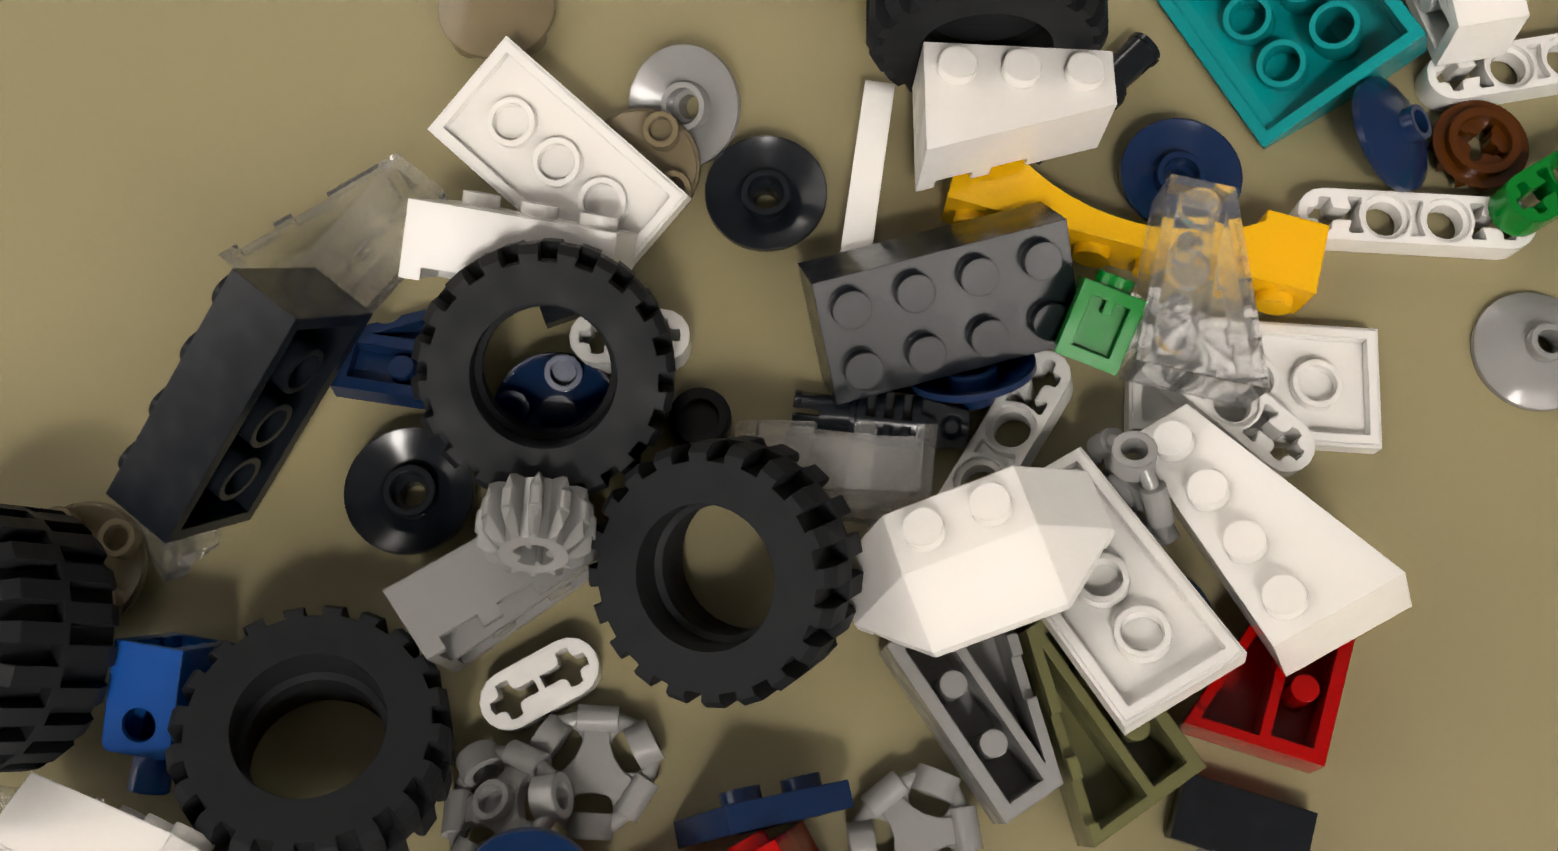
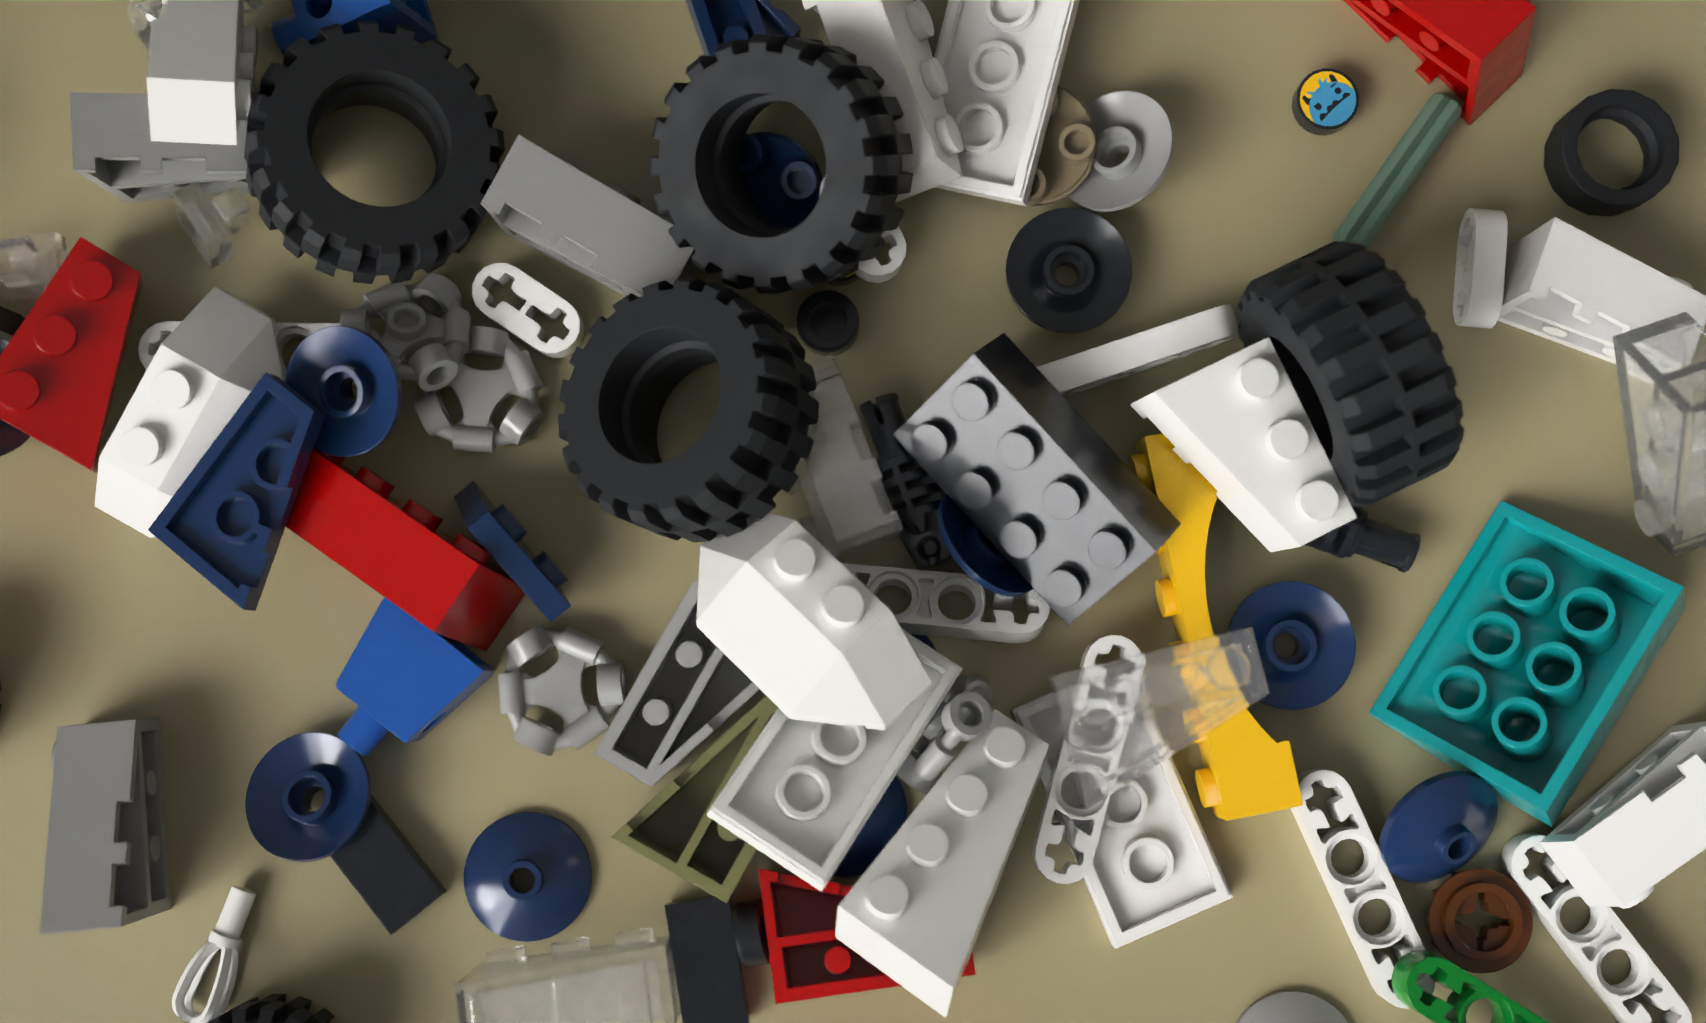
camera: 65 degrees right, 10 degrees up
(378, 489) = (607, 89): black dish -> none
(535, 524) = (635, 230): light grey gear -> none
(1100, 322) = (1084, 630): green bracket -> none
(1234, 765) = (750, 933): none -> black tile

